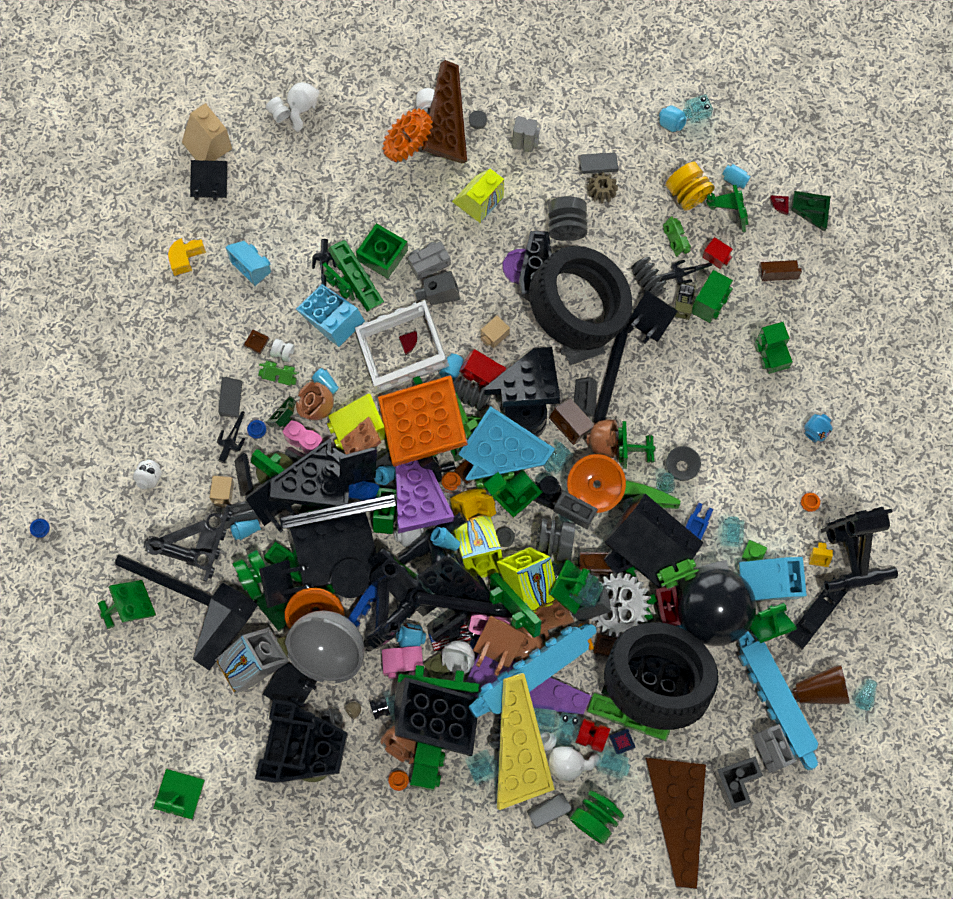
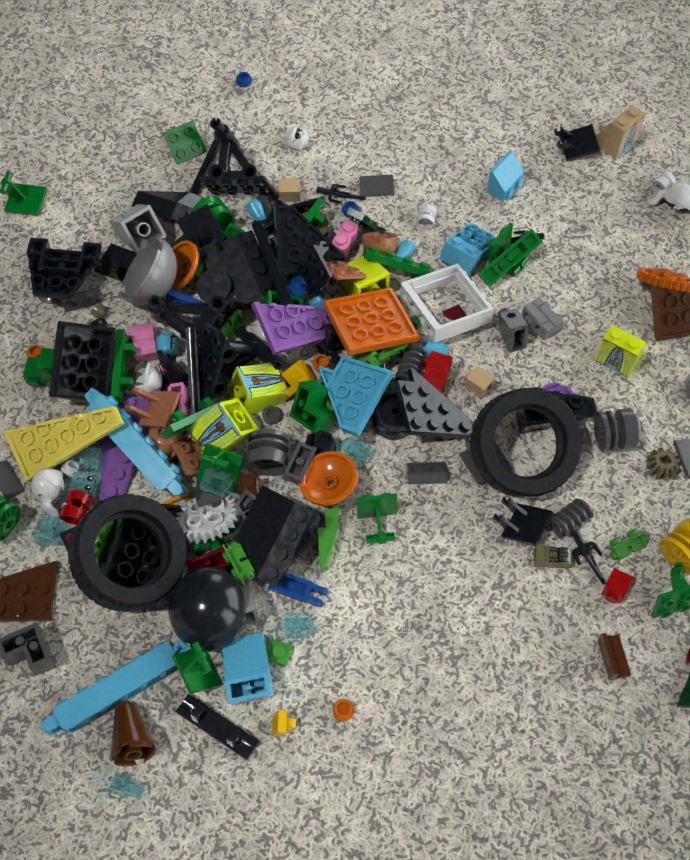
camera: 85 degrees right, 10 degrees down
(180, 253) = (501, 132): yellow brick -> none
(256, 341) = (433, 198): reddish brown tile -> none
(286, 374) = (405, 213): bright green hinge -> none
(345, 386) = (391, 259): none -> green plate
(382, 251) = (540, 277): green brick -> none
(443, 538) = (253, 349): medium azure cone -> none
(449, 494) = (308, 360): clear arm -> none
(484, 770) = (40, 413): clear light blue brick -> none
(571, 420) = (399, 459): panel -> none
(602, 437) = (383, 483): nougat cylinder -> none
(611, 375) = (454, 493): black axle -> none
(665, 486) = (344, 555): clear light blue cone -> none
(687, 455) = (367, 559): dark grey piece -> none
(712, 297) = (561, 579): green brick -> none
(773, 347) = (516, 653): green brick -> none
(774, 748) = (63, 684): light grey brick -> none
(818, 427) = (430, 711): dark azure head -> none
(856, 536) = (303, 749): black plate -> none

